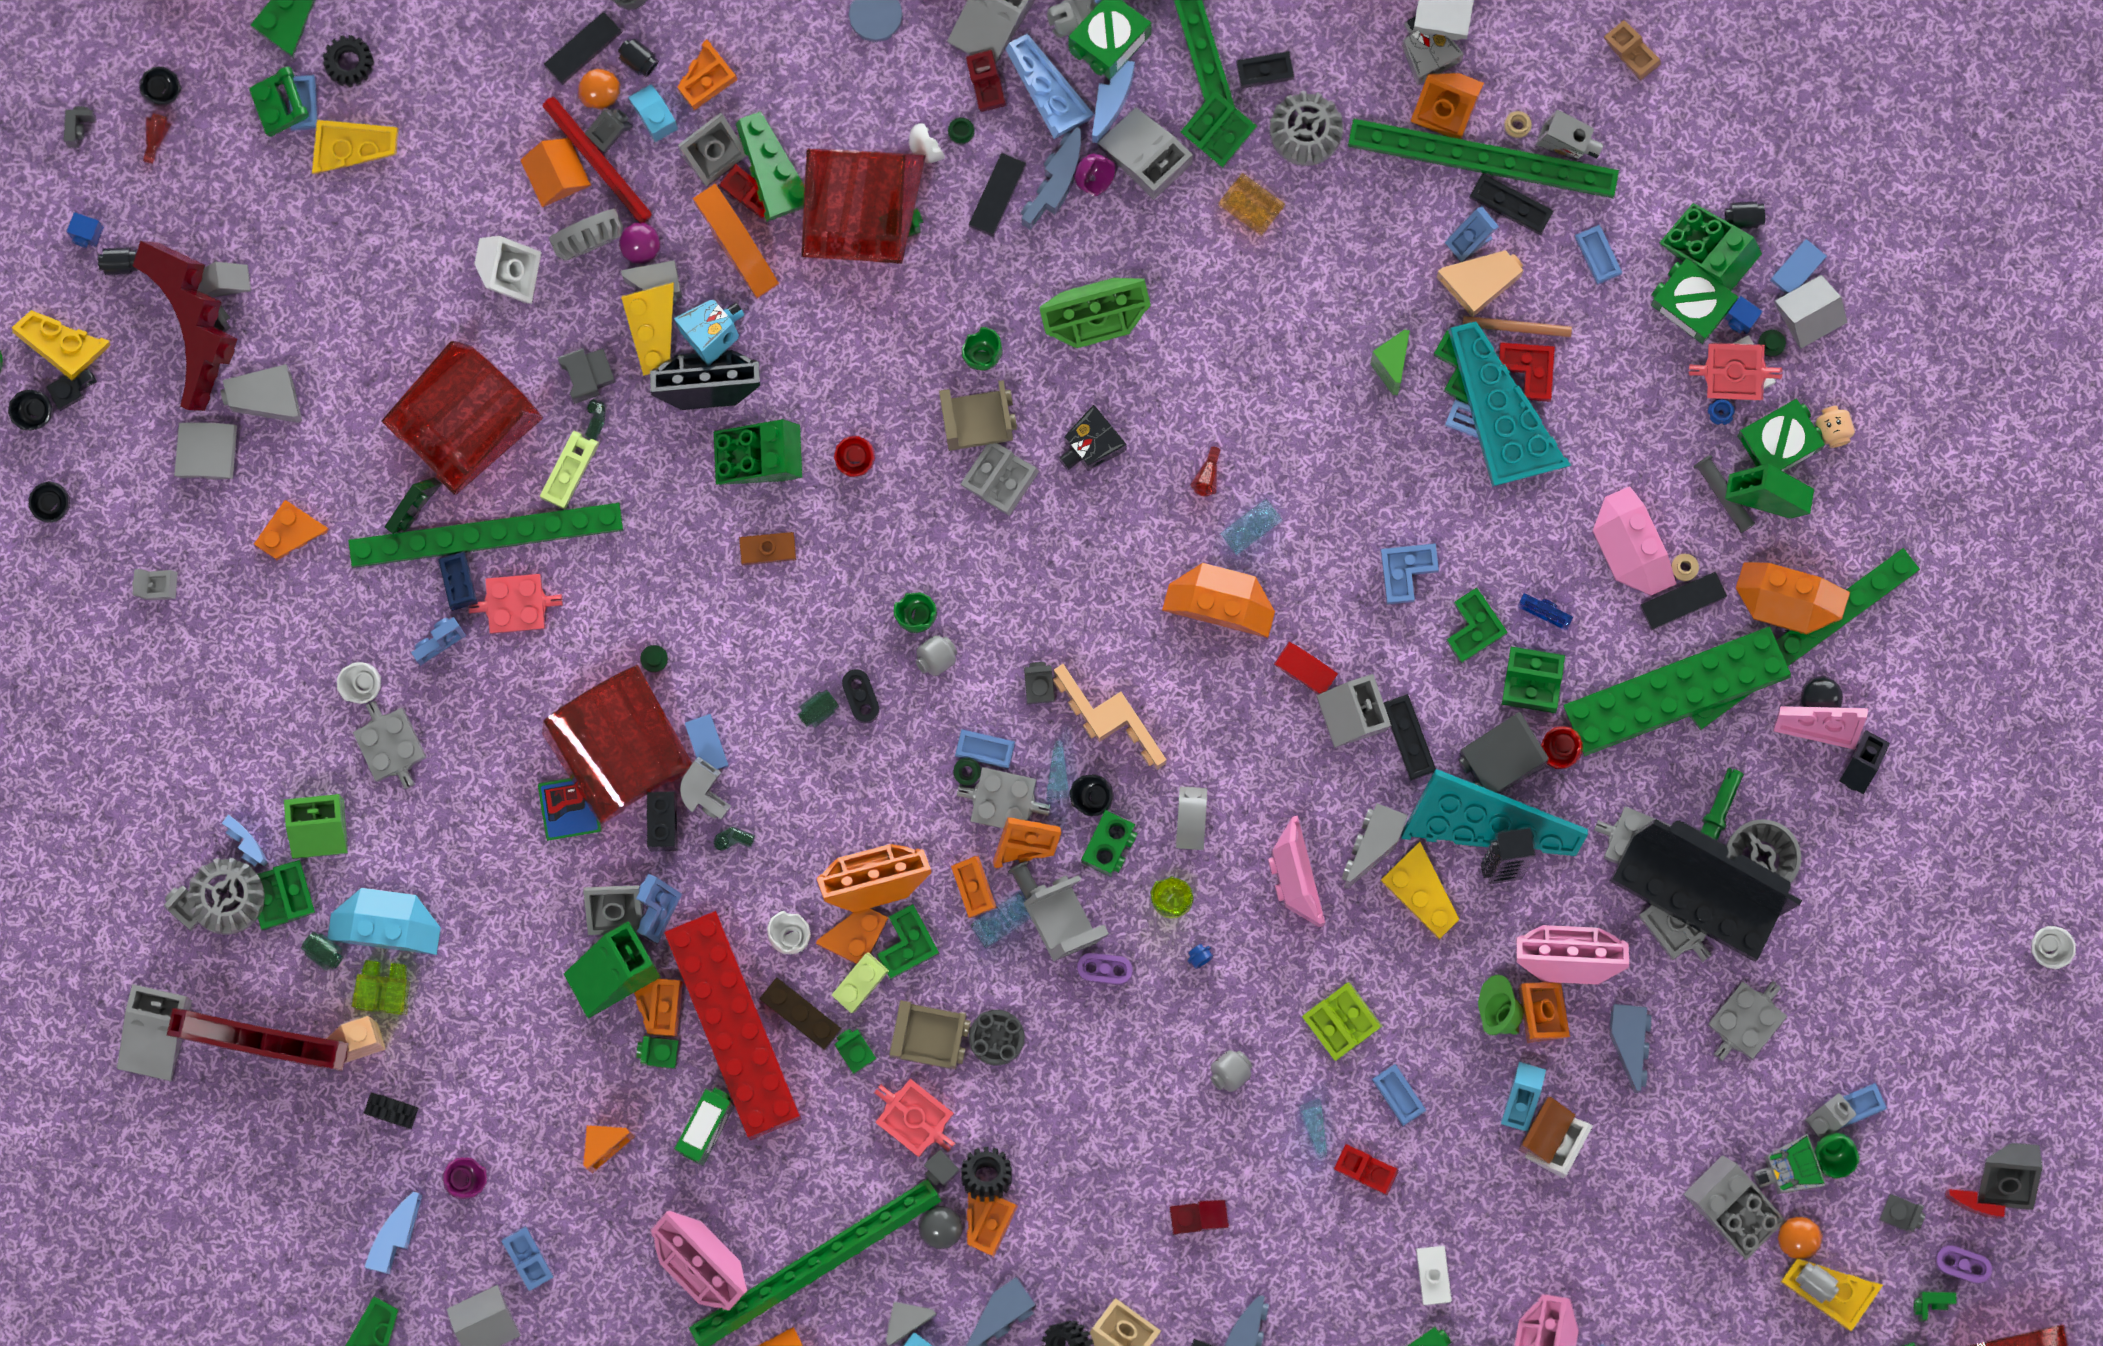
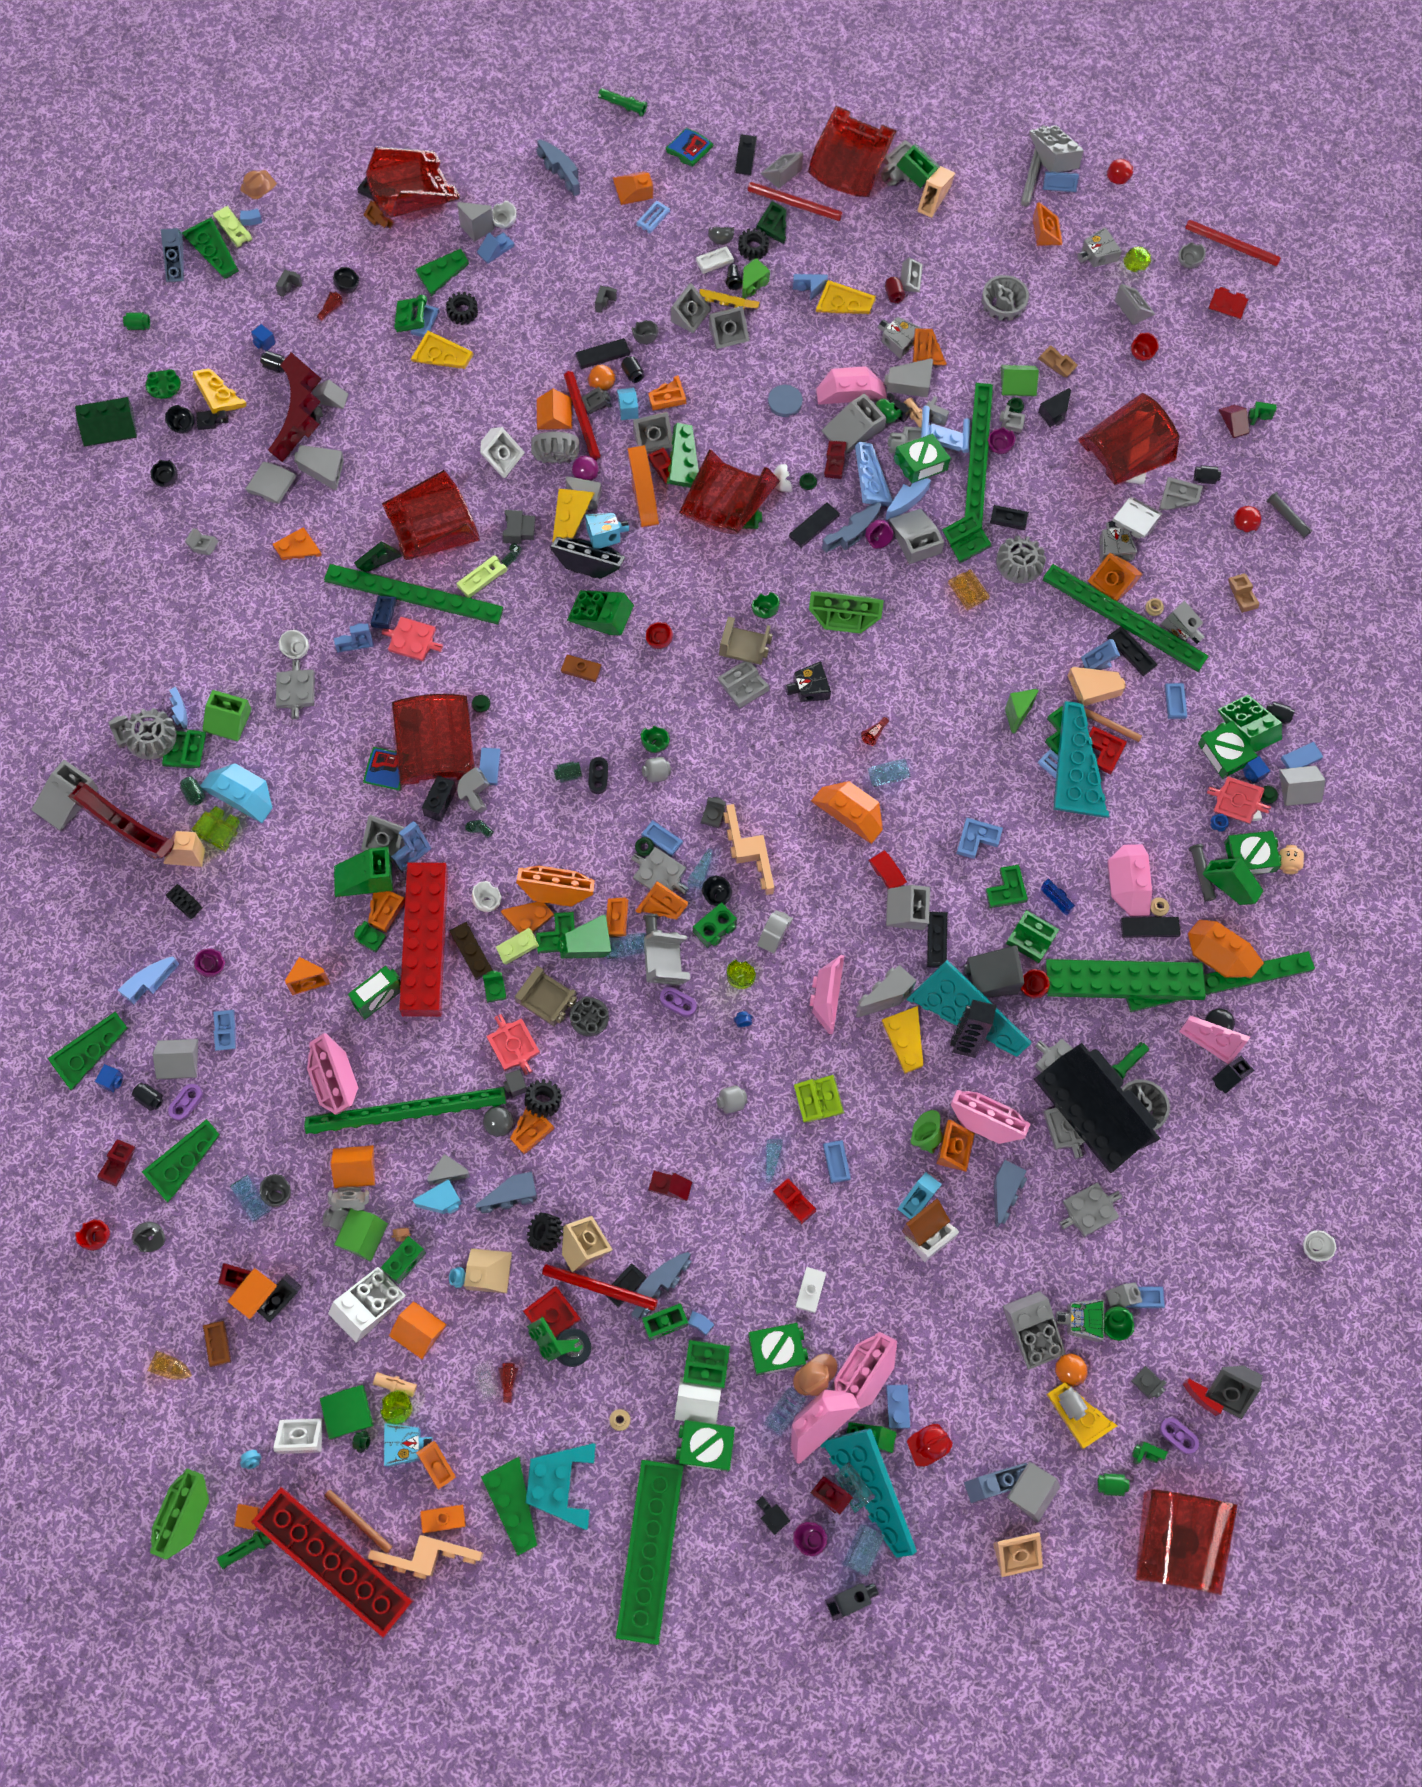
camera: 15 degrees right, 10 degrees down
(950, 937) = (586, 941): none -> slope

